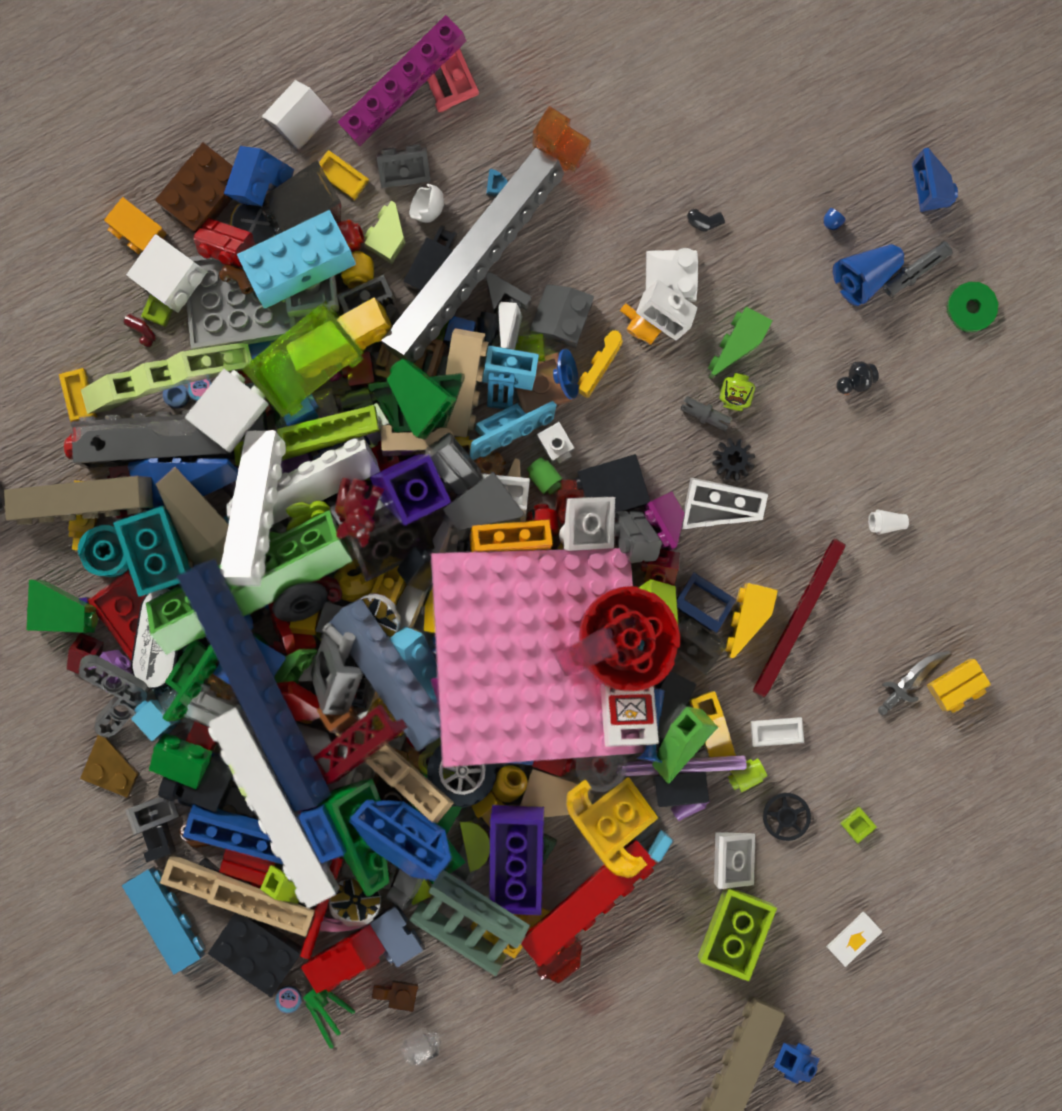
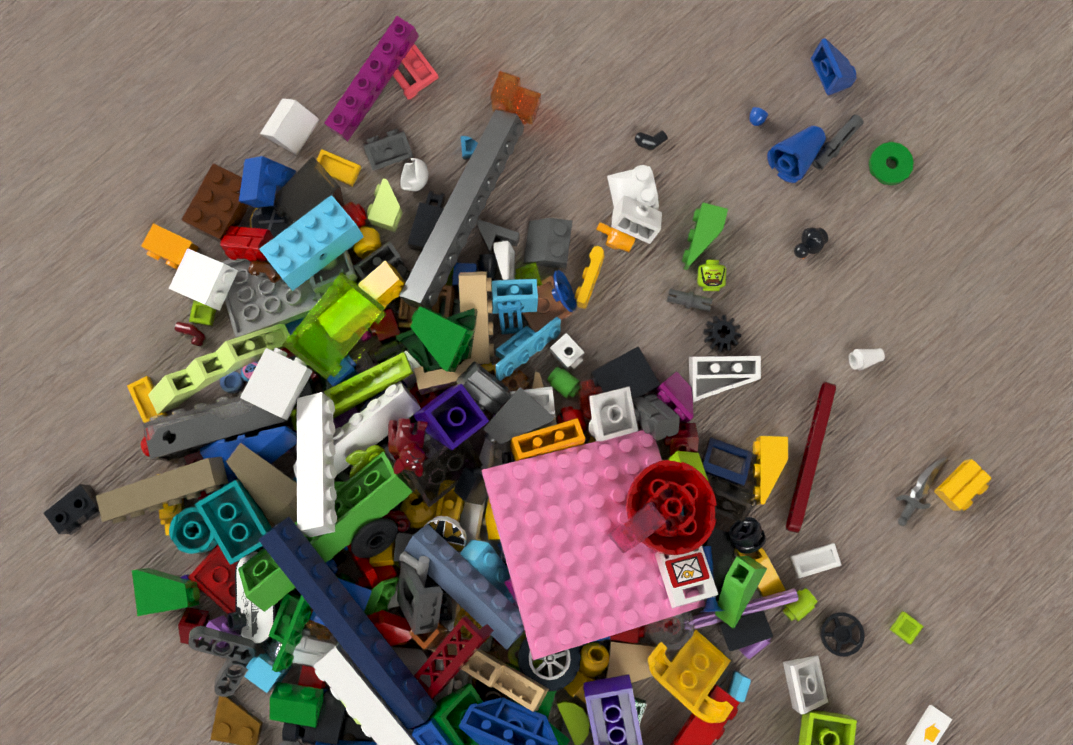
camera: 10 degrees left, 5 degrees down
(133, 658) = (236, 621): none -> black plate
(706, 687) = (747, 535): none -> black wheel

